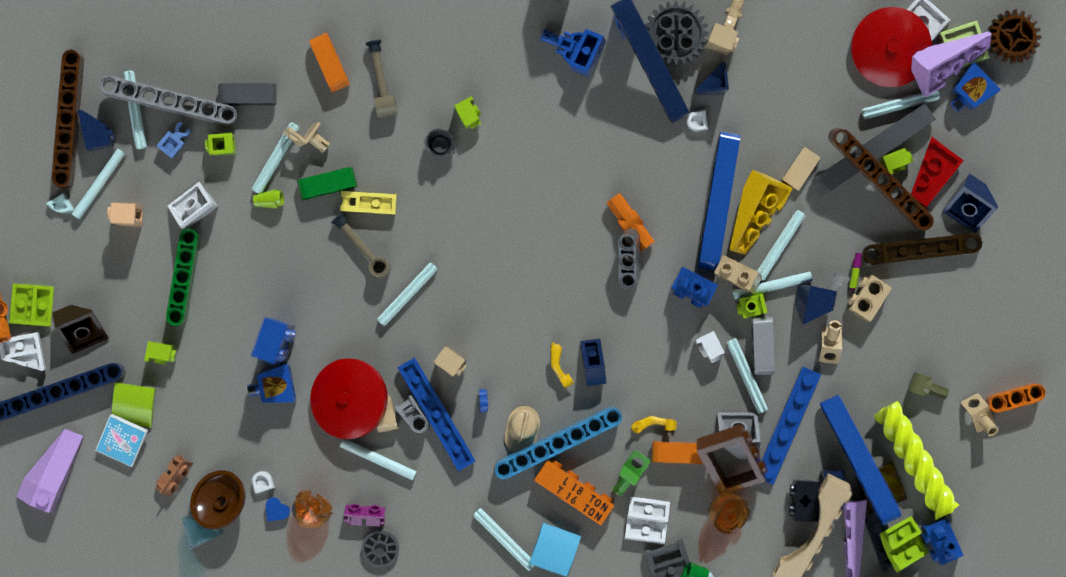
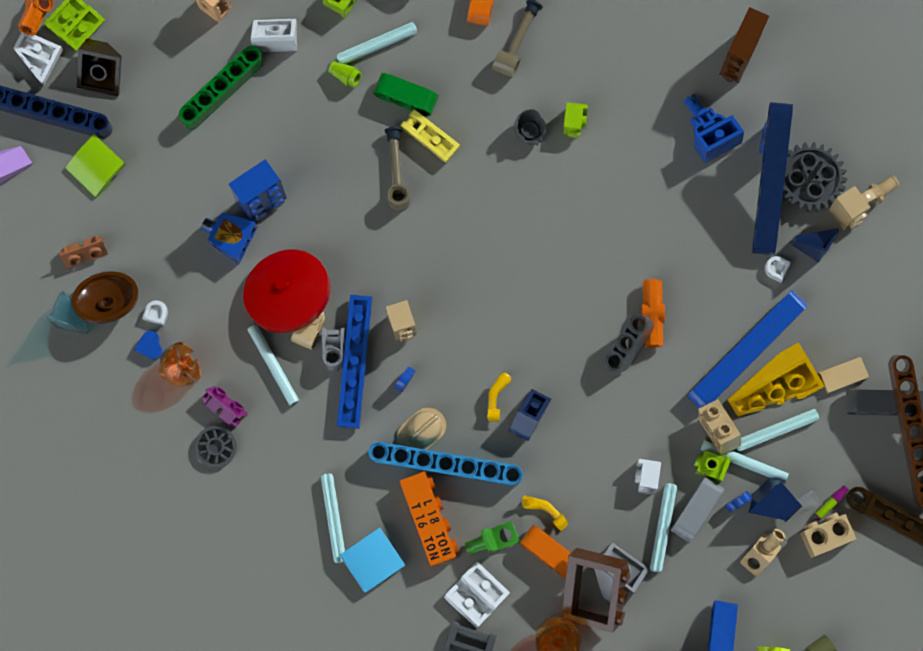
camera: 40 degrees right, 10 degrees down
(121, 440) = (62, 189): medium azure tile -> none
(160, 352) = (152, 137): lime brick -> none
(310, 136) = (421, 46): tan bracket -> none
(407, 294) = (406, 238): light aqua axle -> none
(693, 287) = (669, 411): blue brick -> none
(788, 319) = (738, 501): none -> blue tile
(789, 422) = (672, 599): blue plate -> none

